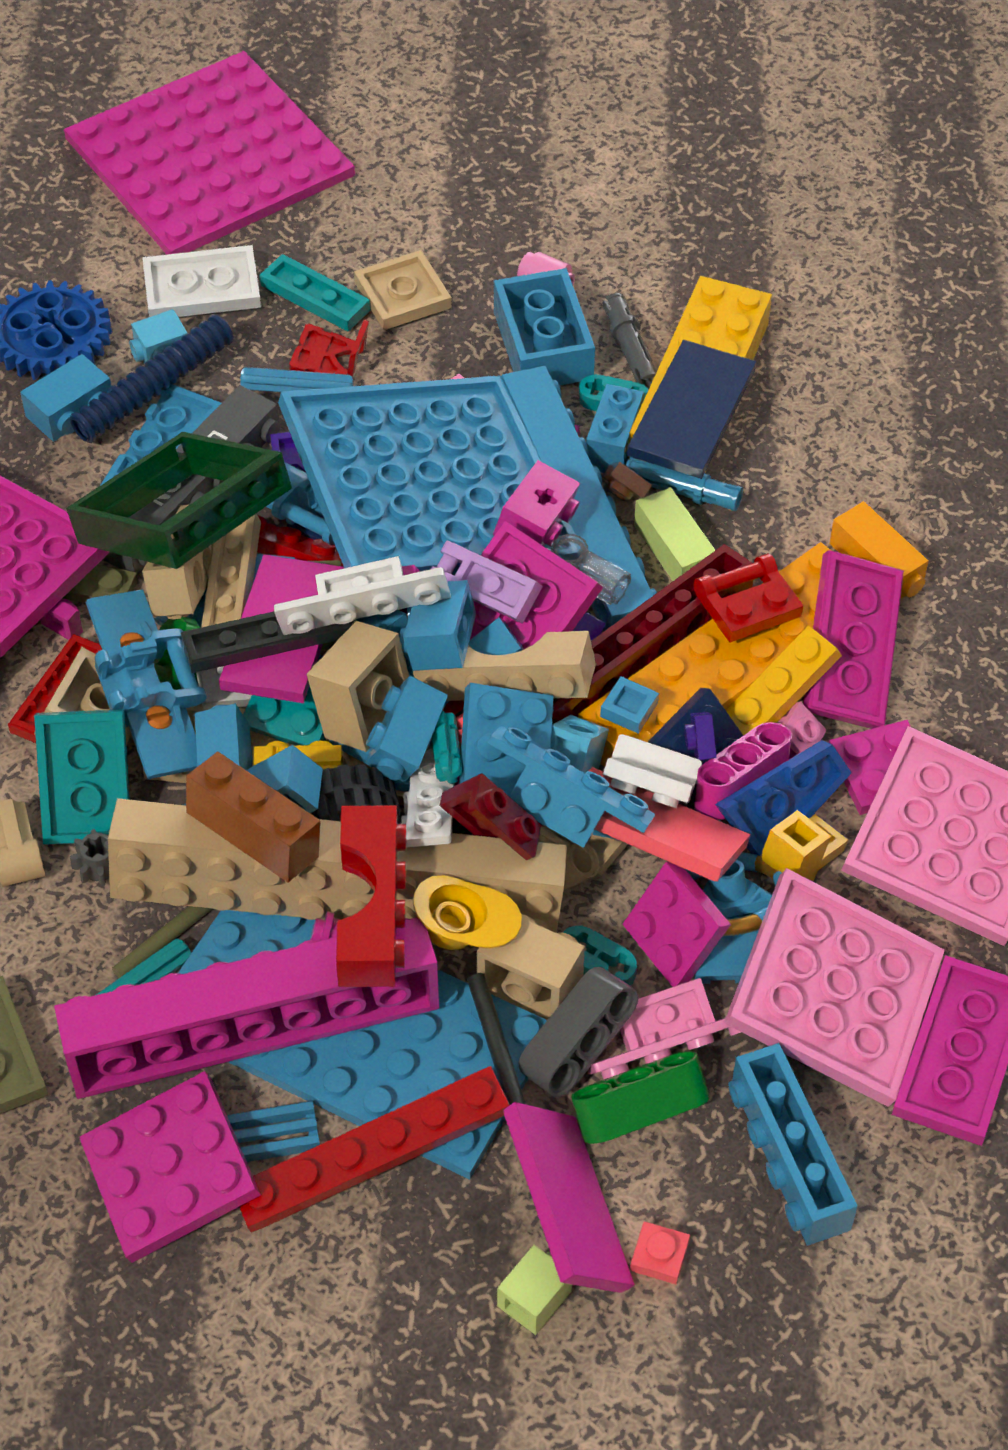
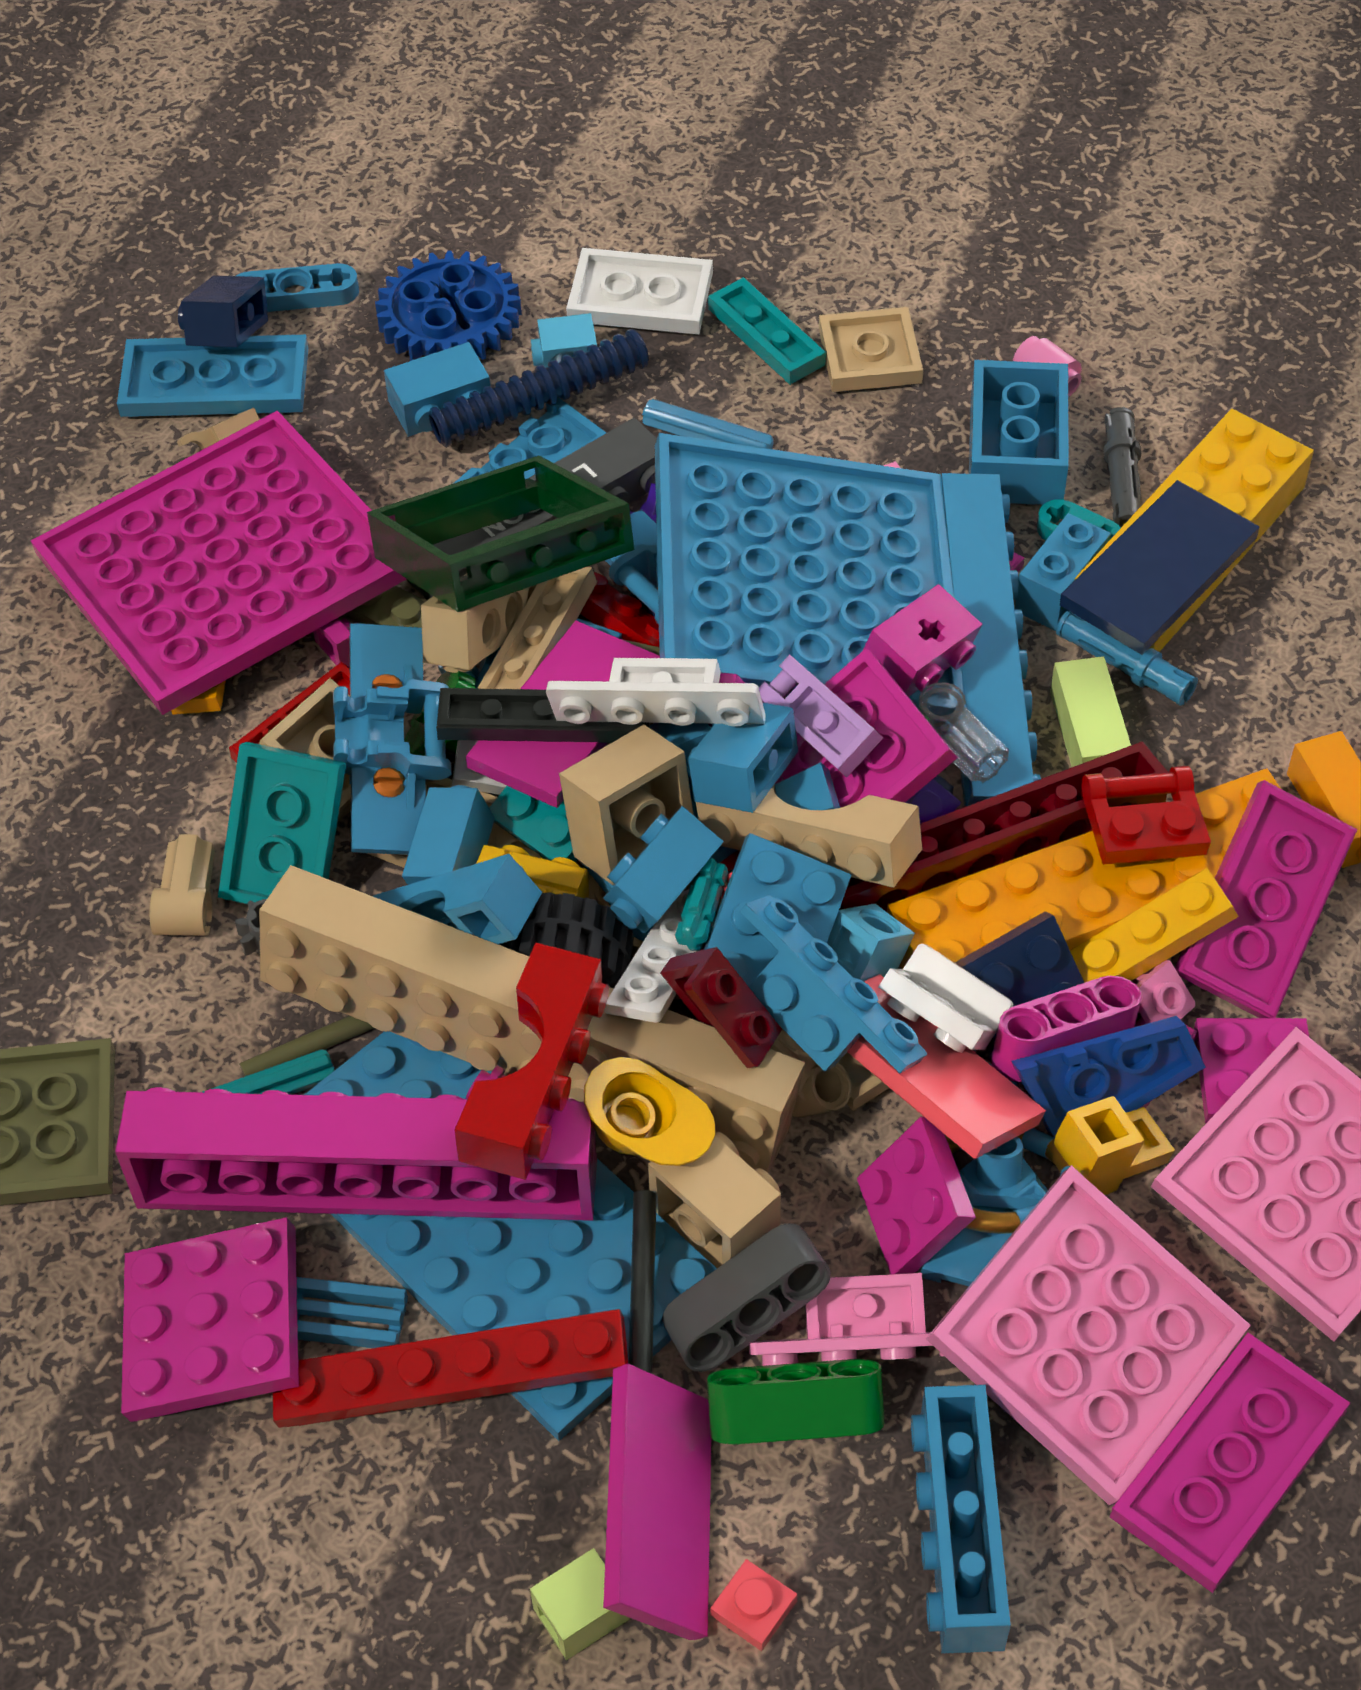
camera: 20 degrees right, 0 degrees up
(208, 154) = (706, 146): dark pink plate -> none
(252, 816) = (431, 928): dark orange brick -> none
(319, 350) = (750, 396): red piece -> none
(604, 953) = (819, 1204): teal beam -> none
(625, 483) = (1048, 638): reddish brown plate -> none
(629, 704) = (947, 910): dark azure plate -> none
(700, 735) = (1018, 971): dark purple plate -> none

